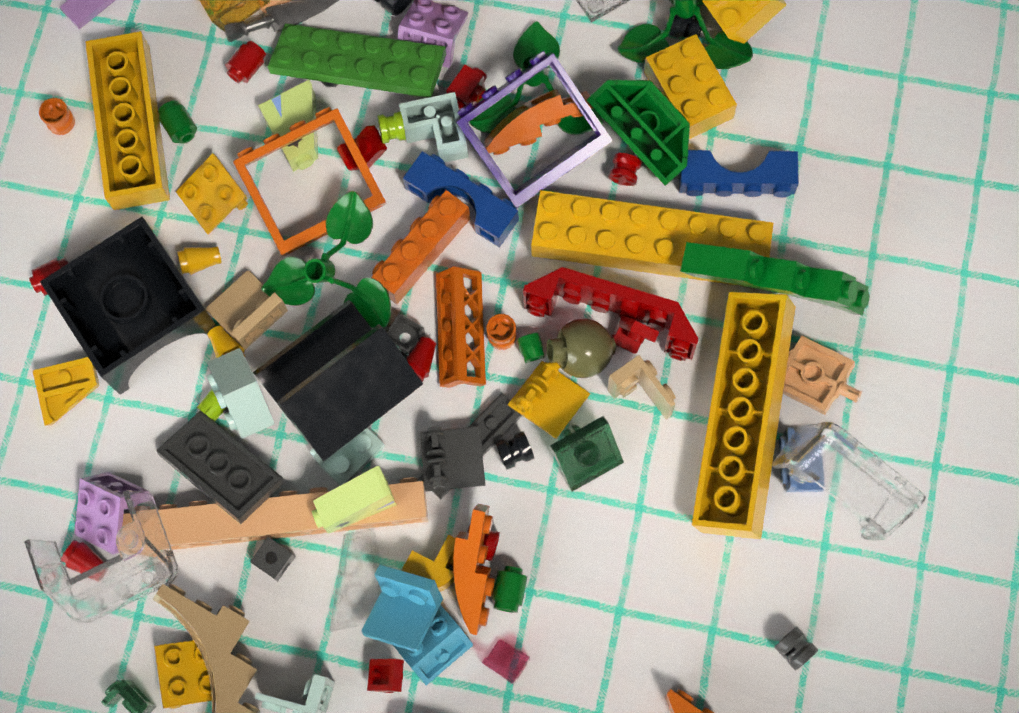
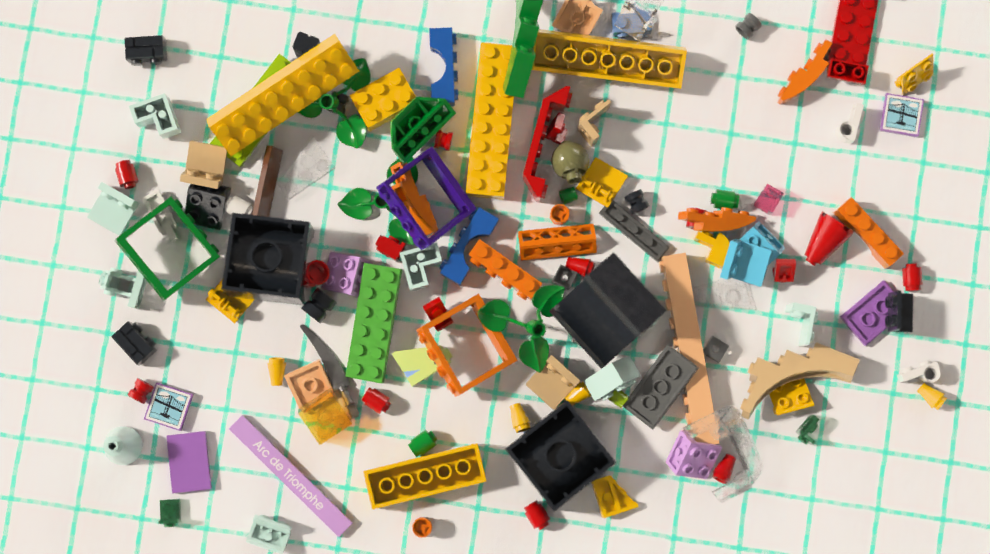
camera: 100 degrees left, 10 degrees up
(211, 194) = (473, 414): yellow hinge -> none
(353, 501) = (683, 295): yellowish green slope -> none
(391, 127) = (427, 293): lime wheel -> none
(452, 458) = (645, 239): dark grey hinge -> none
(586, 453) = (637, 156): clear green tile -> none

